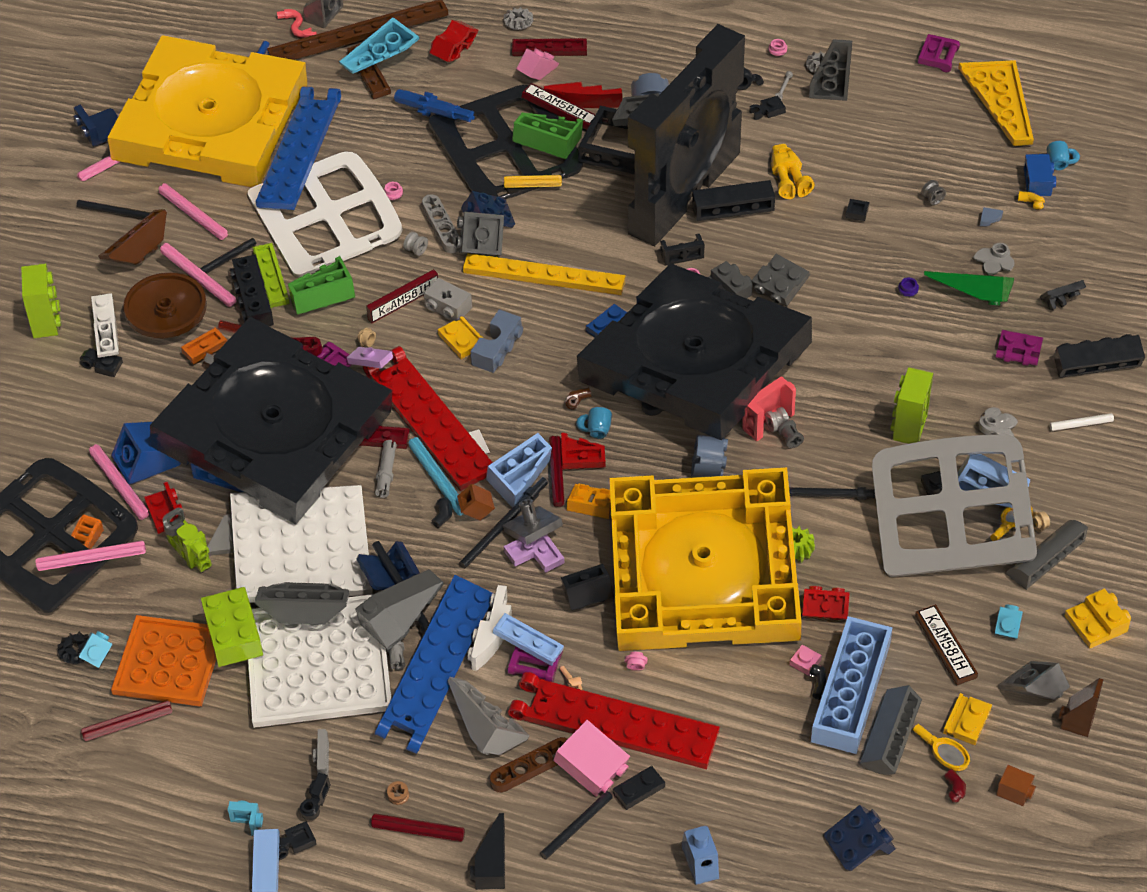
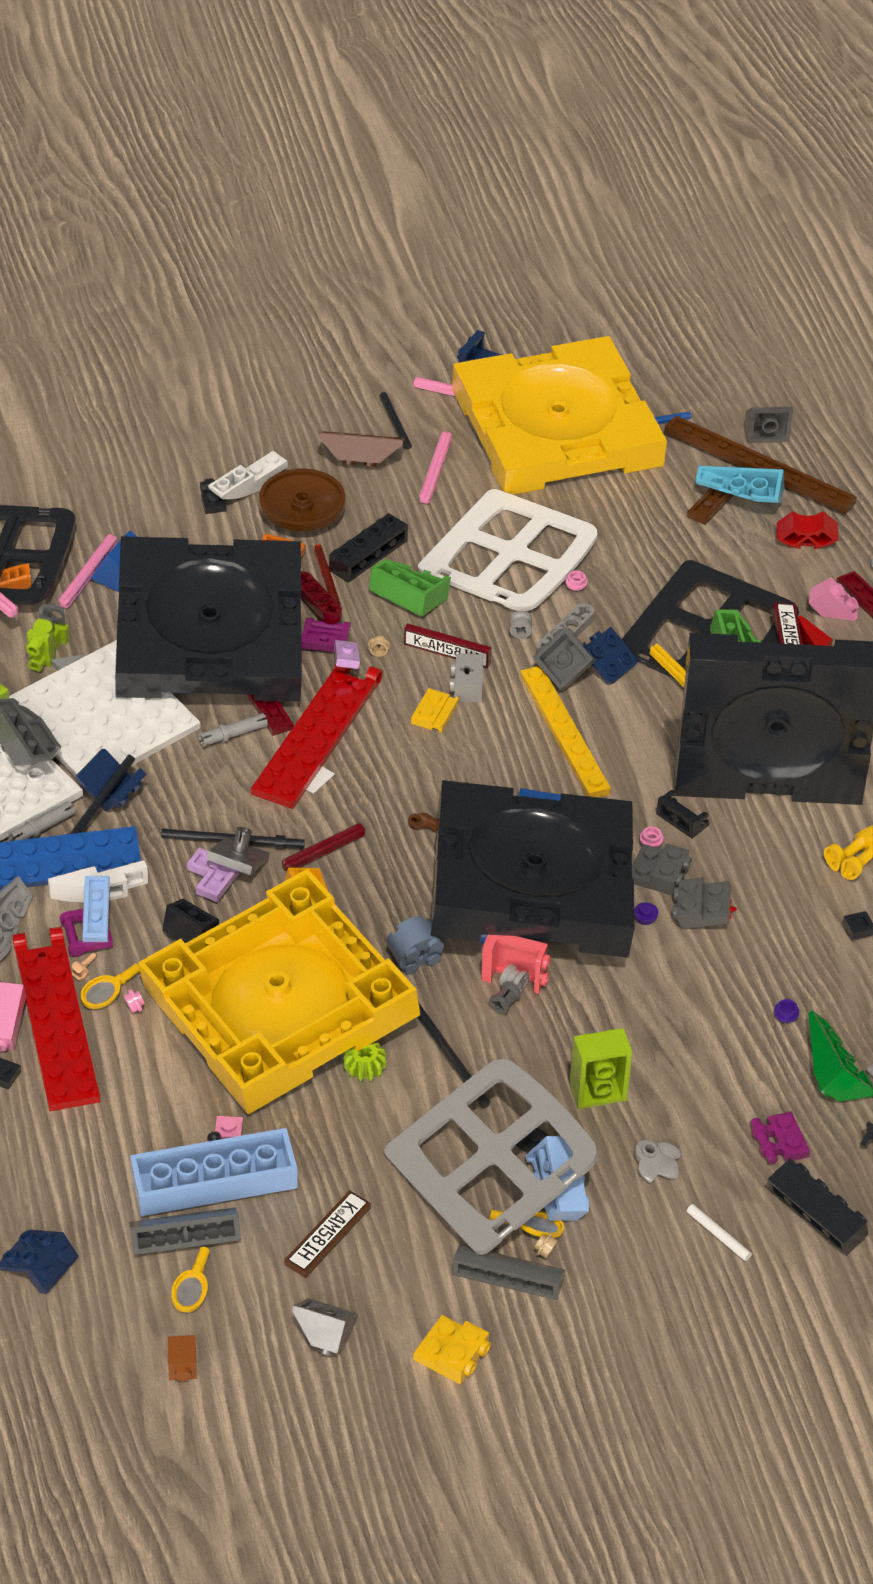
camera: 55 degrees right, 5 degrees down
(40, 300) = (232, 418): lime brick -> none
(161, 504) = (81, 611): red bracket -> none
(198, 275) = (358, 501): bright pink axle -> none
(228, 256) = (395, 512): black bar -> none
(271, 275) = (409, 546): lime tile -> none
(290, 13) = (733, 421): coral animal -> none
(298, 150) = (570, 494): blue hinge -> none
(393, 610) = (58, 799): dark grey wedge -> none
(430, 104) = (702, 552): blue piece -> none
(435, 473) = (252, 769): medium azure axle -> none
(445, 512) = (212, 793): black arm -> none
(475, 502) = (234, 804): dark orange brick -> none
(491, 353) = (429, 737): sand blue arch -> none
(519, 468) = (297, 816): light blue wedge -> none
(581, 453) = (356, 854): red wing -> none
(598, 422) = (402, 848): dark azure piece -> none
(607, 675) = (106, 988): none -> yellow piece
(733, 200) = (779, 821): black brick -> none
(825, 604) = (306, 1114): red bracket -> none
(958, 786) = (152, 1313): dark red arm -> none
(967, 719) = (245, 1289): yellow plate -> none
(1008, 621) = (391, 1271): medium azure bracket -> none
(1081, 709) = (306, 1373): reddish brown slope -> none

